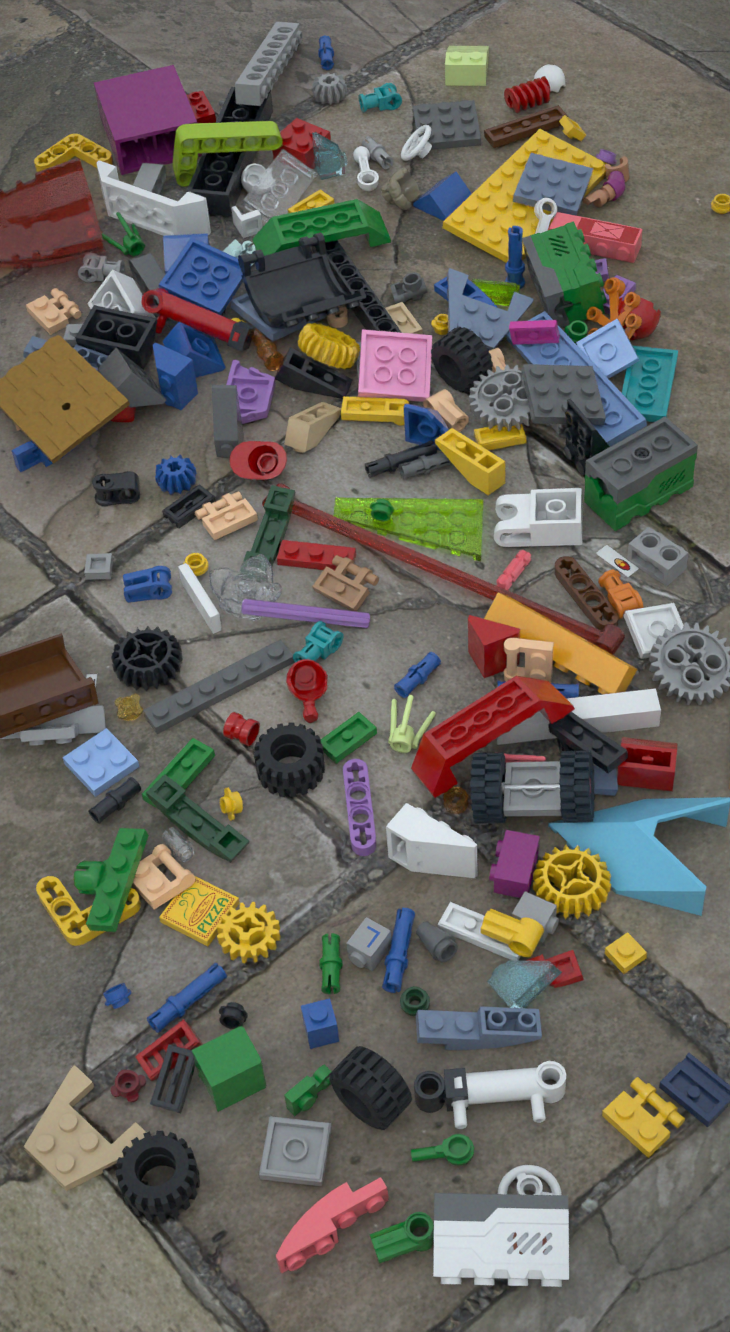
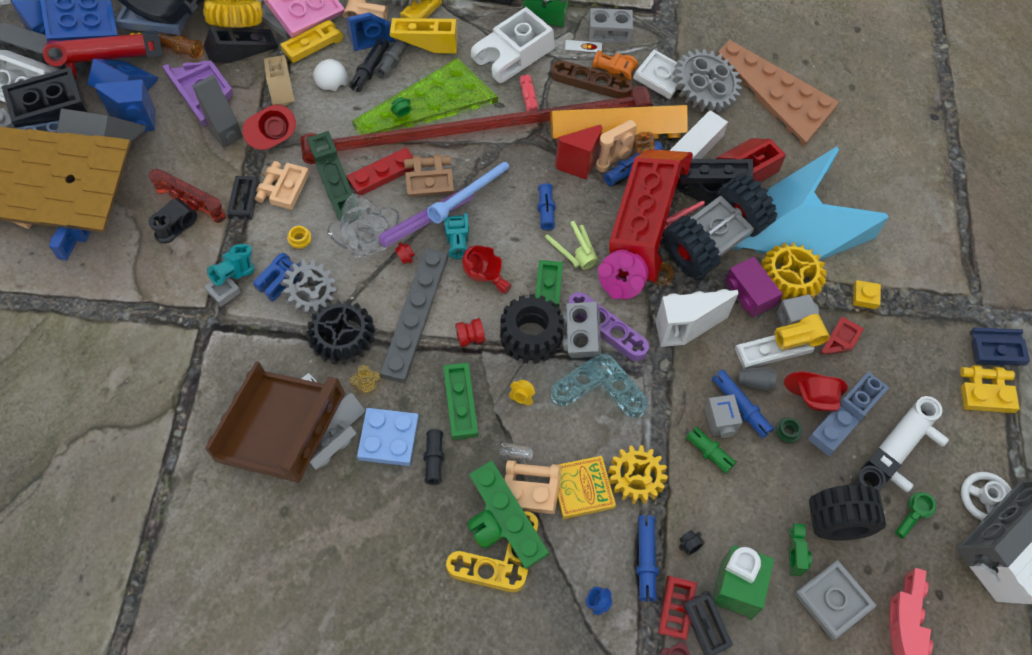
camera: 50 degrees left, 10 degrees up
(121, 551) = (234, 264): none -> teal connector
(145, 469) = (193, 196): none -> clear red plate
(162, 595) = (310, 296): none -> light grey gear
(175, 474) = (210, 178): blue gear -> none
(194, 821) = (513, 425): dark green slope -> none
(200, 598) = (332, 258): white tile -> none
(232, 1043) = (744, 564): none -> white tile
(259, 632) = (405, 253): none -> red plate
(305, 839) = (598, 377): none -> clear light blue beam
(314, 613) = (439, 211): none -> light blue piece
(320, 1023) = (756, 497): blue brick -> none
(328, 790) = (588, 329): none -> light grey brick
(359, 448) = (330, 75): none -> white hair
(399, 1238) = (961, 597): green piece -> none
(401, 779) = (626, 261): none -> dark pink plate
(468, 987) = (817, 390): none -> red piece
(522, 981) = (843, 360): clear light blue slope -> none
(561, 676) = (644, 141): none -> clear orange bush

